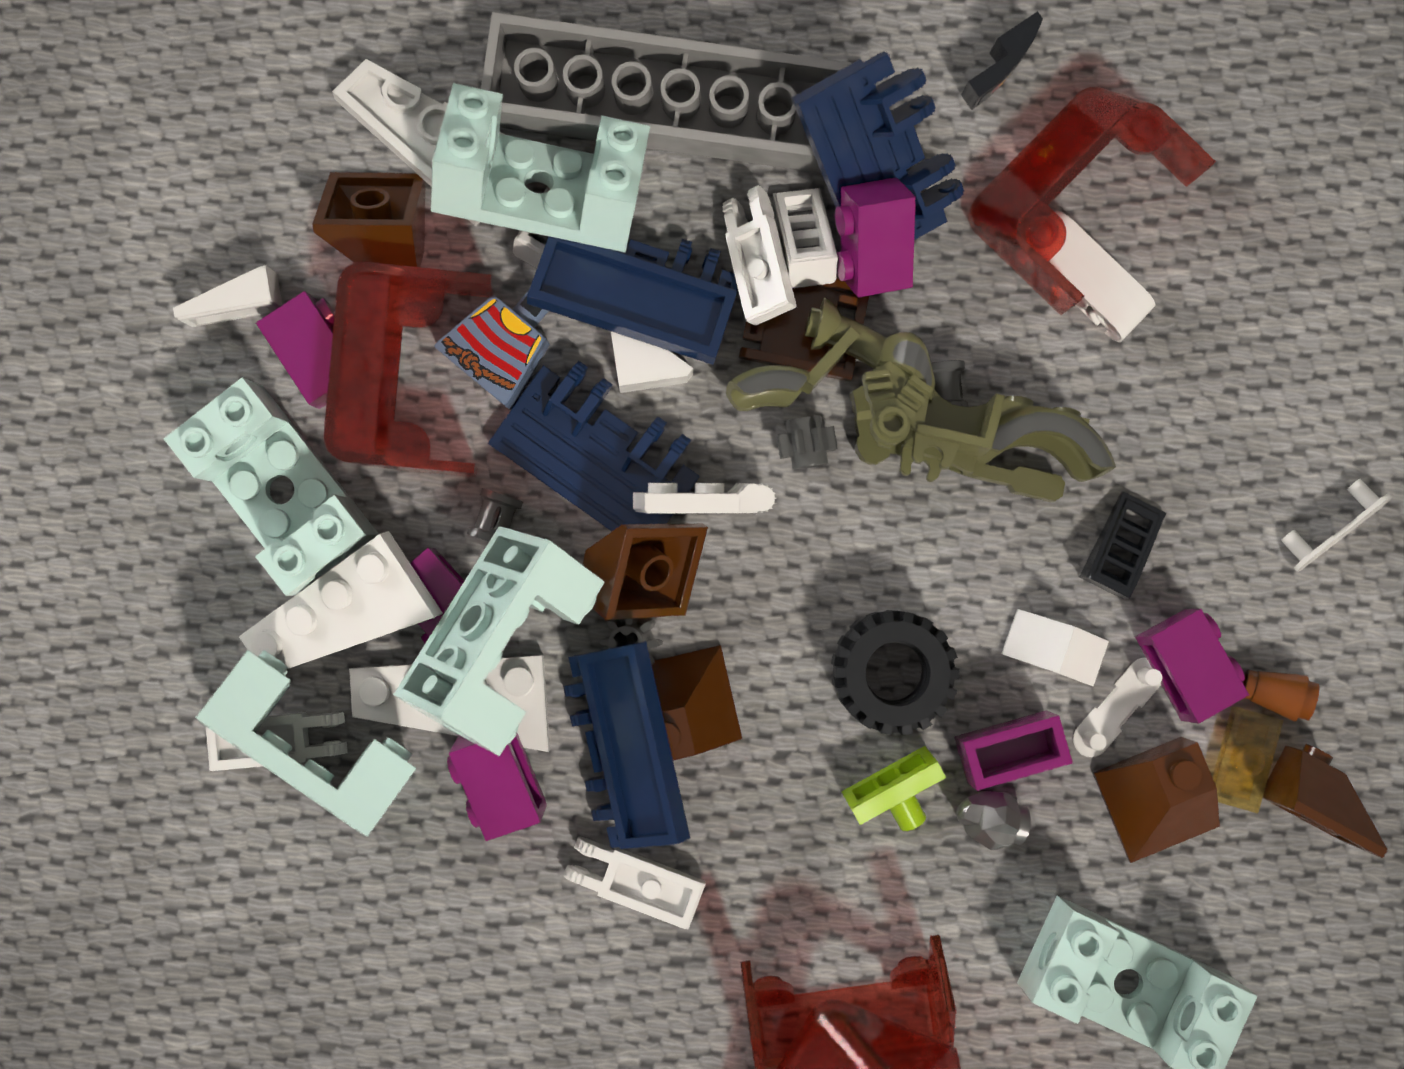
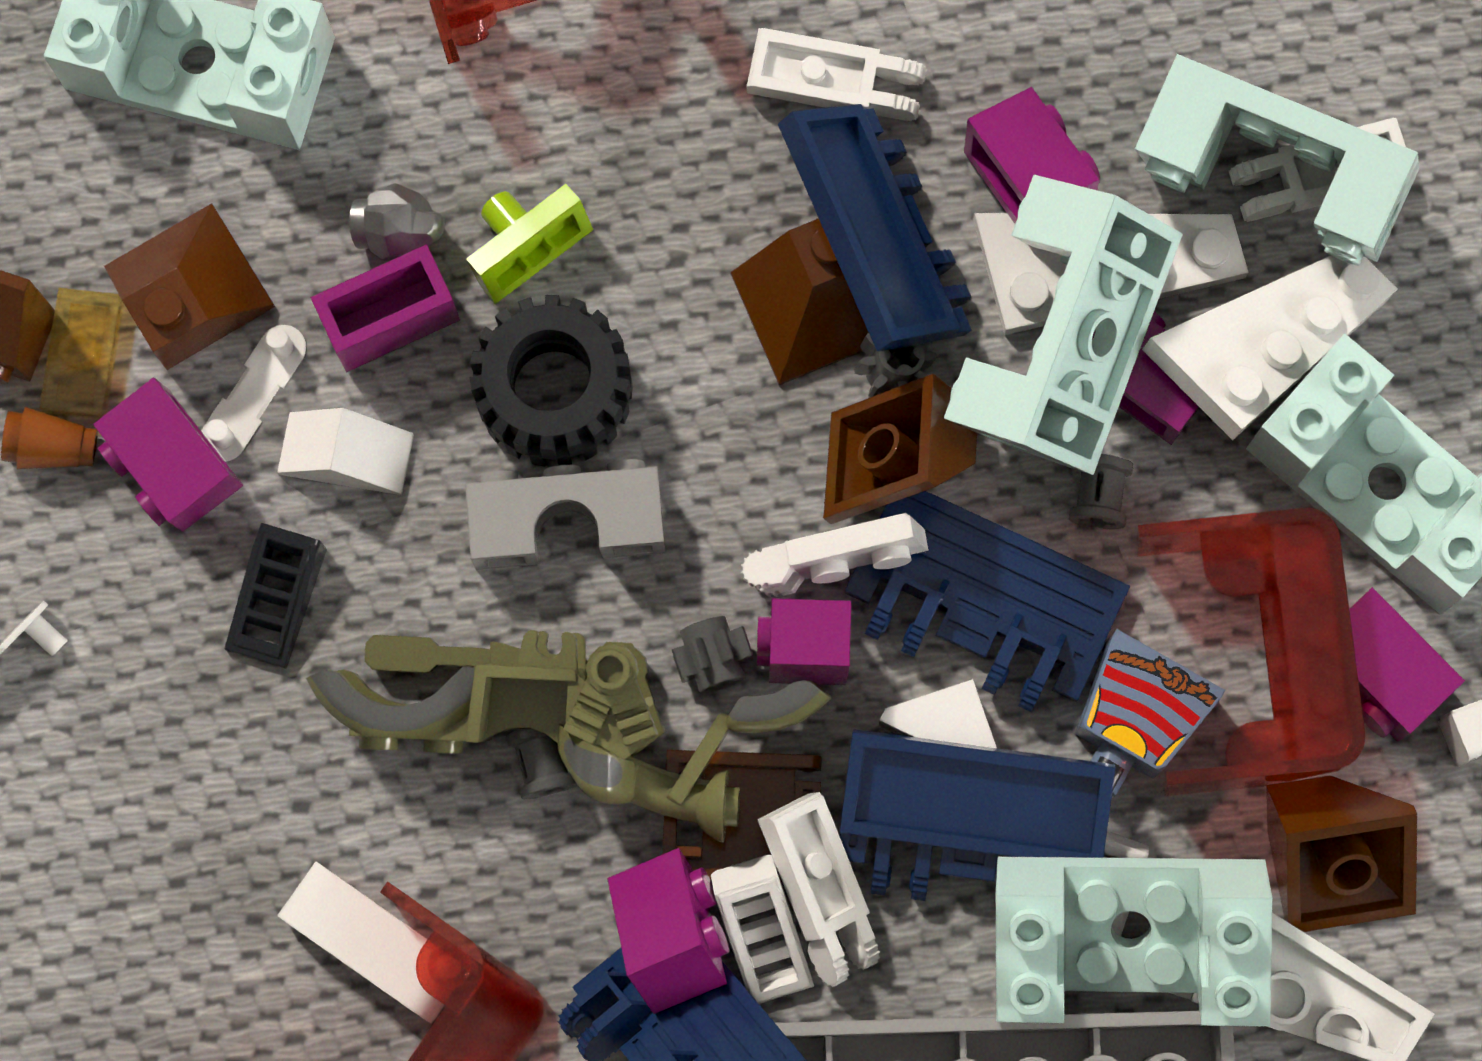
camera: 170 degrees right, 10 degrees down
(738, 433) = (806, 641): none -> magenta brick
(942, 572) = (510, 511): none -> light grey arch

